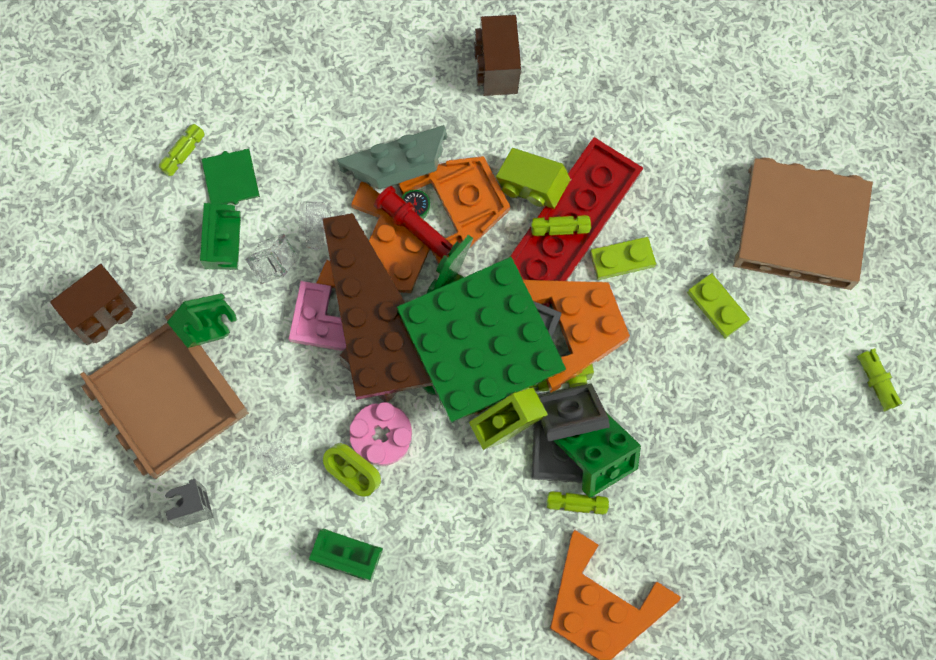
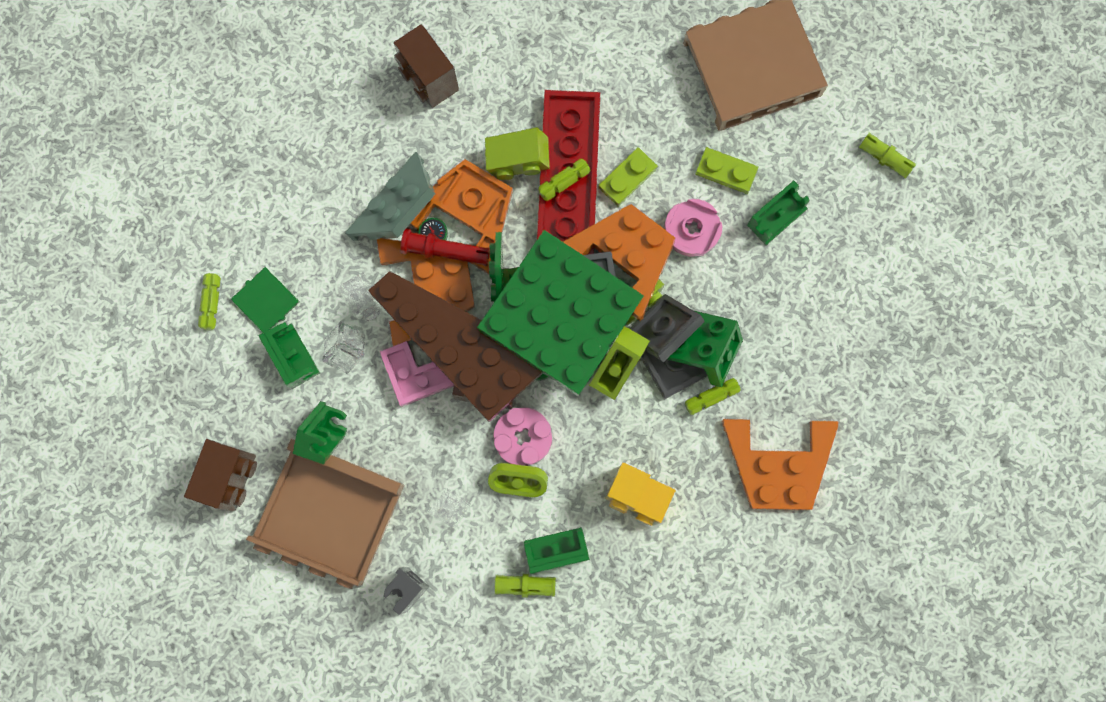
camera: 25 degrees left, 5 degrees up
(298, 569) = (525, 585): none -> lime pin
(453, 548) = (639, 493): none -> yellow brick
(671, 339) = (708, 222): none -> bright pink plate
(742, 372) = (778, 213): none -> green hinge

